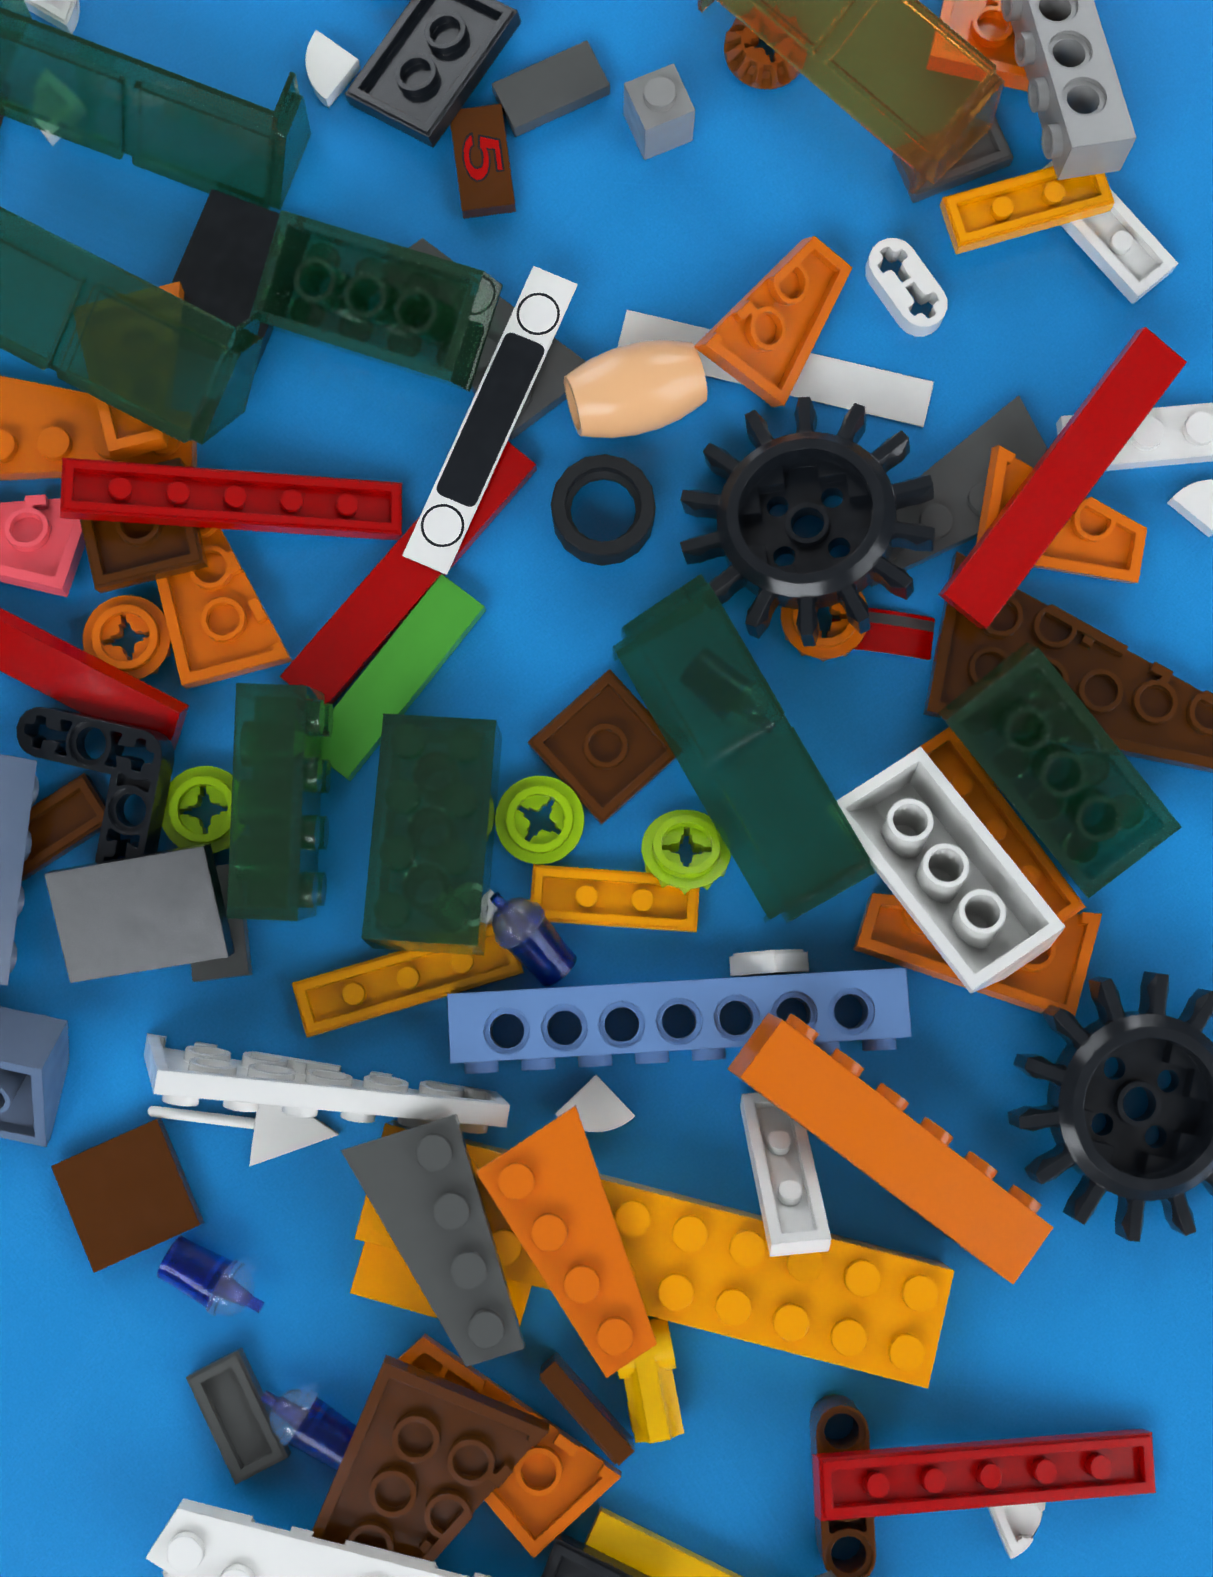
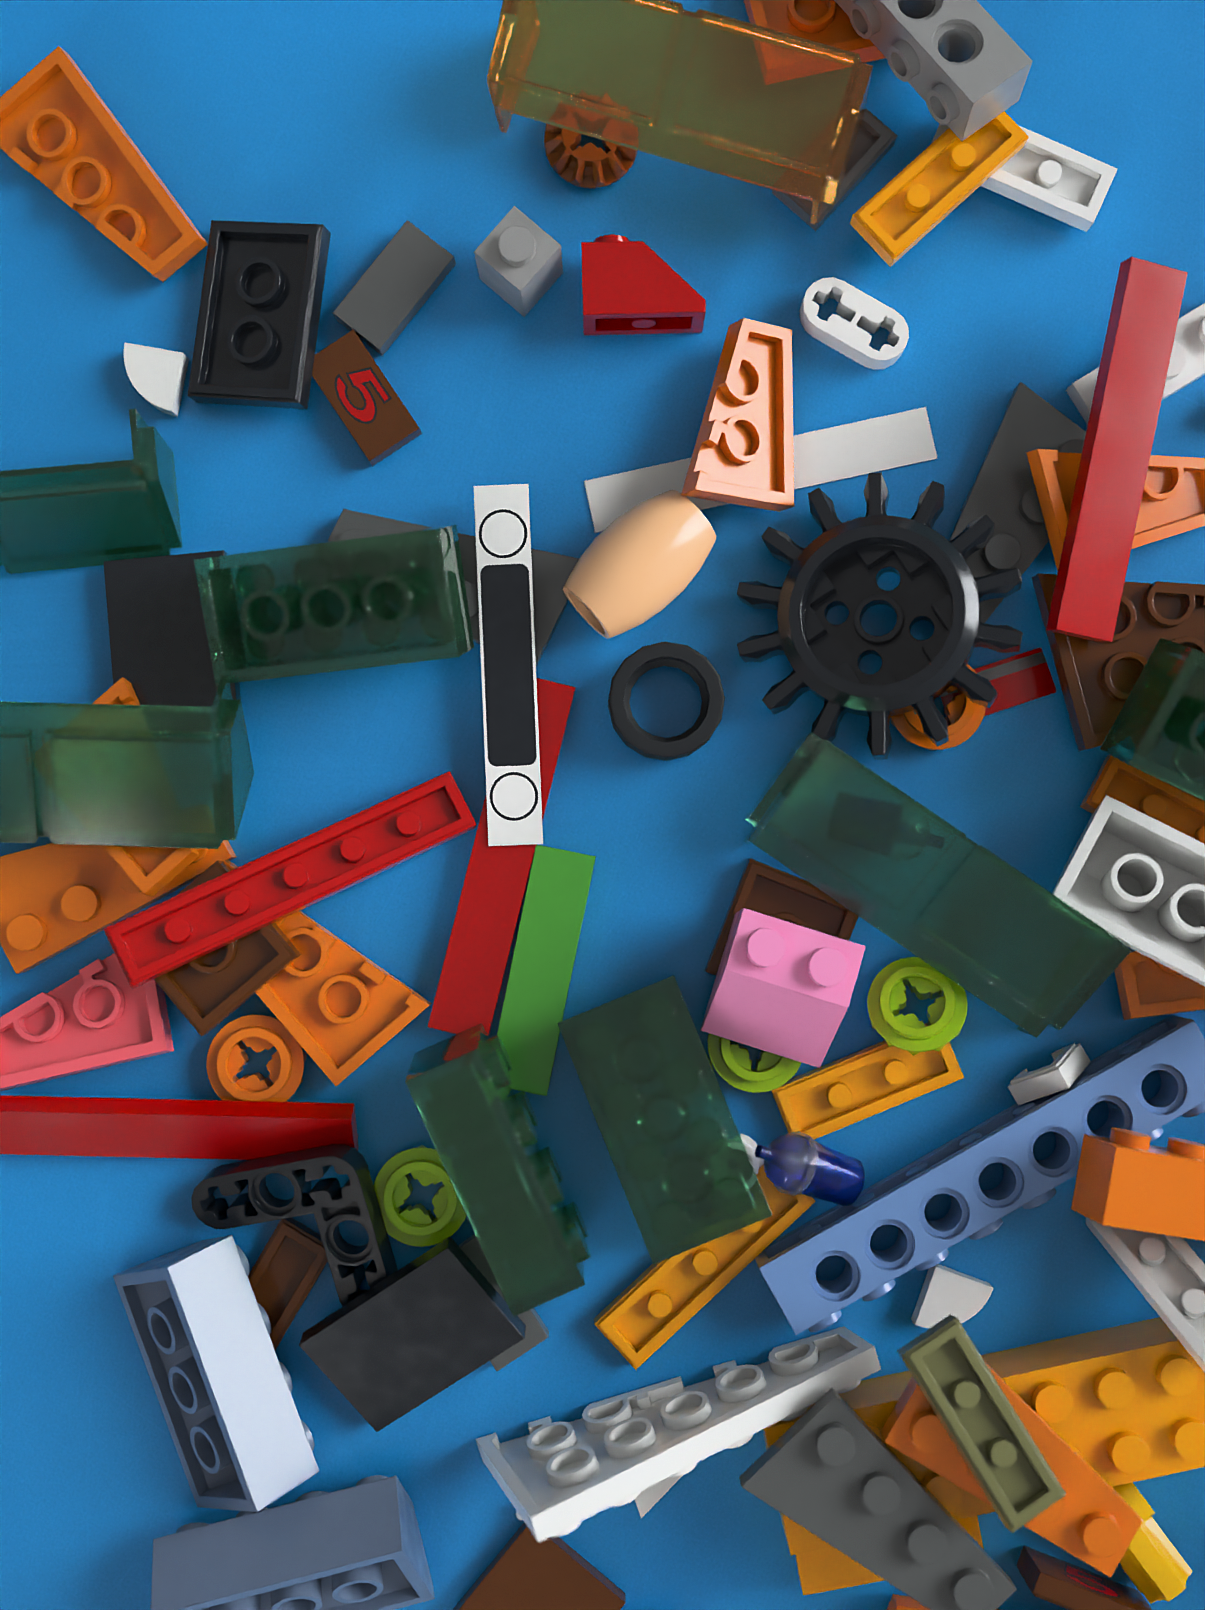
camera: 25 degrees left, 5 degrees up
(561, 1189) = (981, 1423): none -> olive tile
(579, 774) = (782, 987): none -> bright pink slope
(738, 178) = (635, 291): none -> red slope

